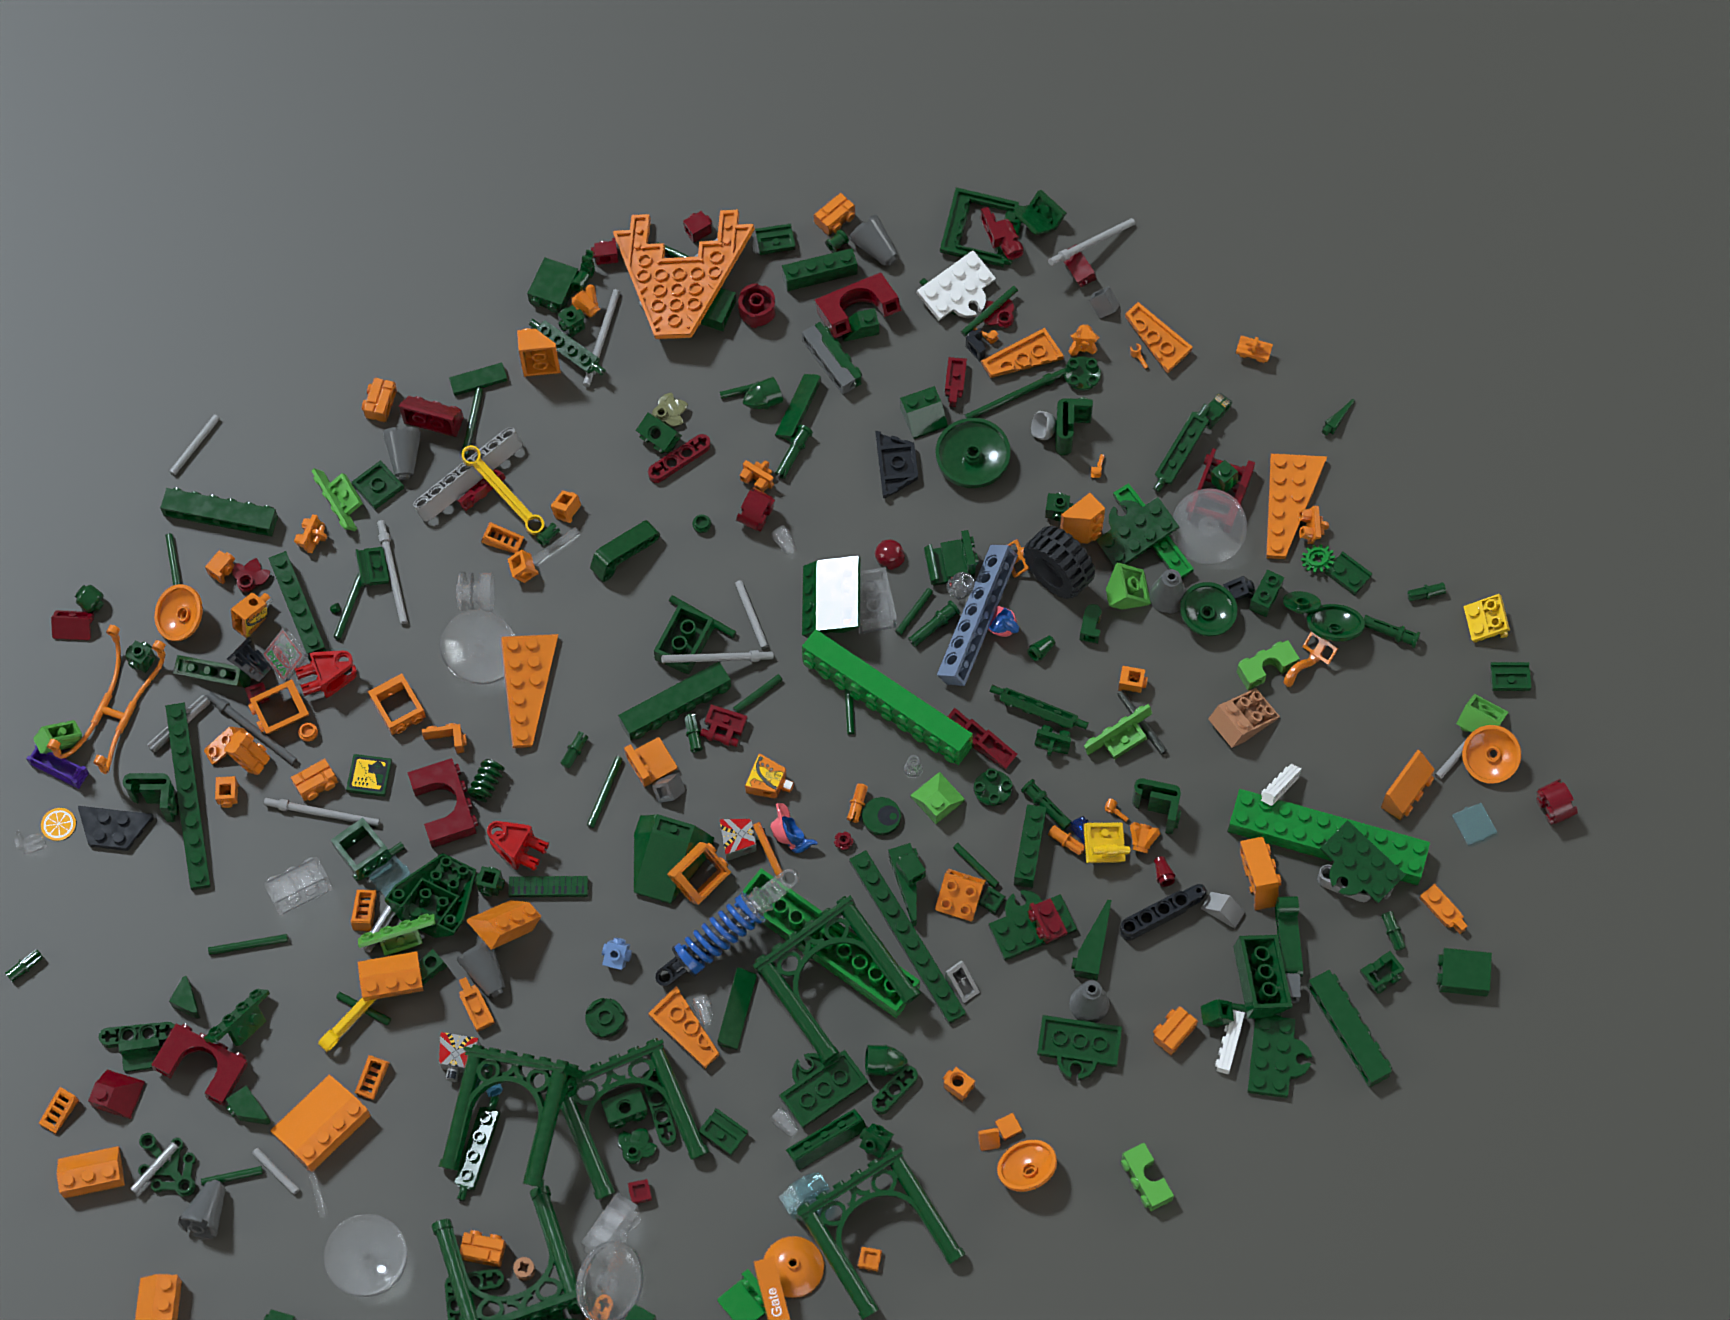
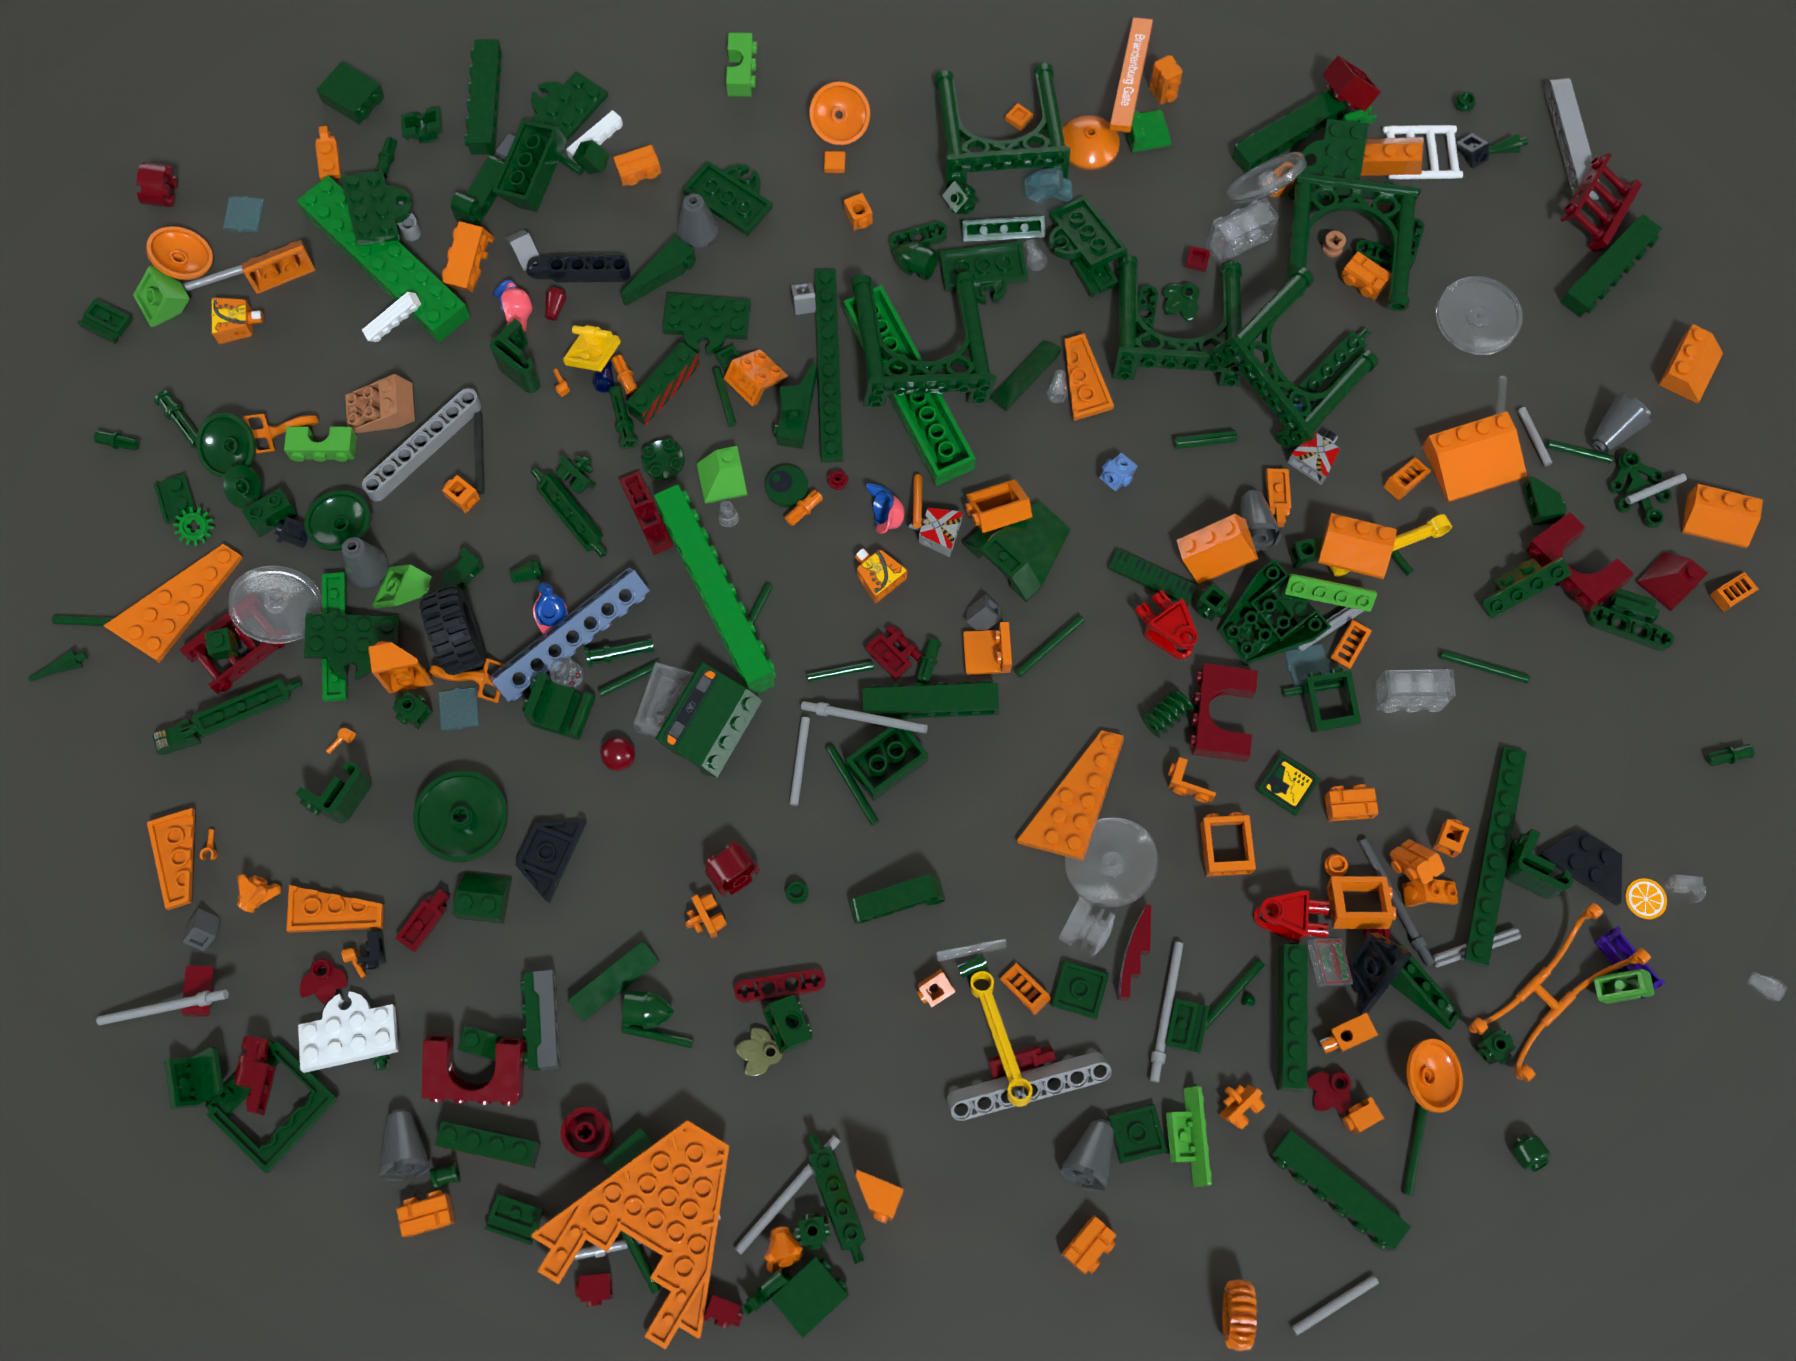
camera: 155 degrees left, 5 degrees up
(71, 625) = (1561, 1133): dark red panel -> none
(184, 999) = (1570, 635): dark green slope -> none
(258, 399) = (1239, 1315): none -> orange gear
(285, 805) = (1393, 795): light grey bar -> none
(431, 415) = (1036, 1188): dark red slope -> none
(432, 601) = (1138, 945): none -> dark red slope
(462, 556) = (1080, 990): none -> dark green tile
(472, 420) = (992, 1160): dark green bar -> none
(478, 379) = (959, 1215): dark green tile -> none
(522, 566) = (1019, 938): orange brick -> none
(558, 1026) = (1205, 439): none -> dark green axle
(574, 750) = (1060, 703): dark green axle -> none
(605, 1017) = (1155, 427): dark green tile -> none
(614, 1104) = (1187, 326): dark green brick -> none
(726, 928) = (1001, 428): piece -> none
(749, 1158) = (1084, 235): none -> dark green plate
(784, 540) = (719, 826): clear cone -> none
(796, 444) = (641, 931): dark green pin -> none
(986, 313) = (332, 985): dark green bar -> none
(989, 1139) = (857, 160): orange slope -> none
(1025, 527) = (458, 709): none -> clear light blue piece
(1043, 425) = (366, 810): light grey hair -> none
(1045, 380) = (326, 869): dark green bar -> none
(1047, 920) = (691, 304): dark red bracket -> none
(1082, 373) = (283, 856): dark green dish -> none
(1122, 736) = (507, 441): bright green bracket -> none
(1143, 836) = (551, 341): orange rock -> none
(1185, 711) = (417, 454): none -> light grey beam
(1193, 850) = (514, 302): none -> coral hair
(1254, 349) = (85, 783): orange hips -> none
(1314, 524) = (172, 559): orange hips -> none
(1345, 457) = (80, 620): none -> dark green bar
(1410, 727) = (233, 319): none -> orange torso
(1487, 618) = (81, 382): yellow plate -> none

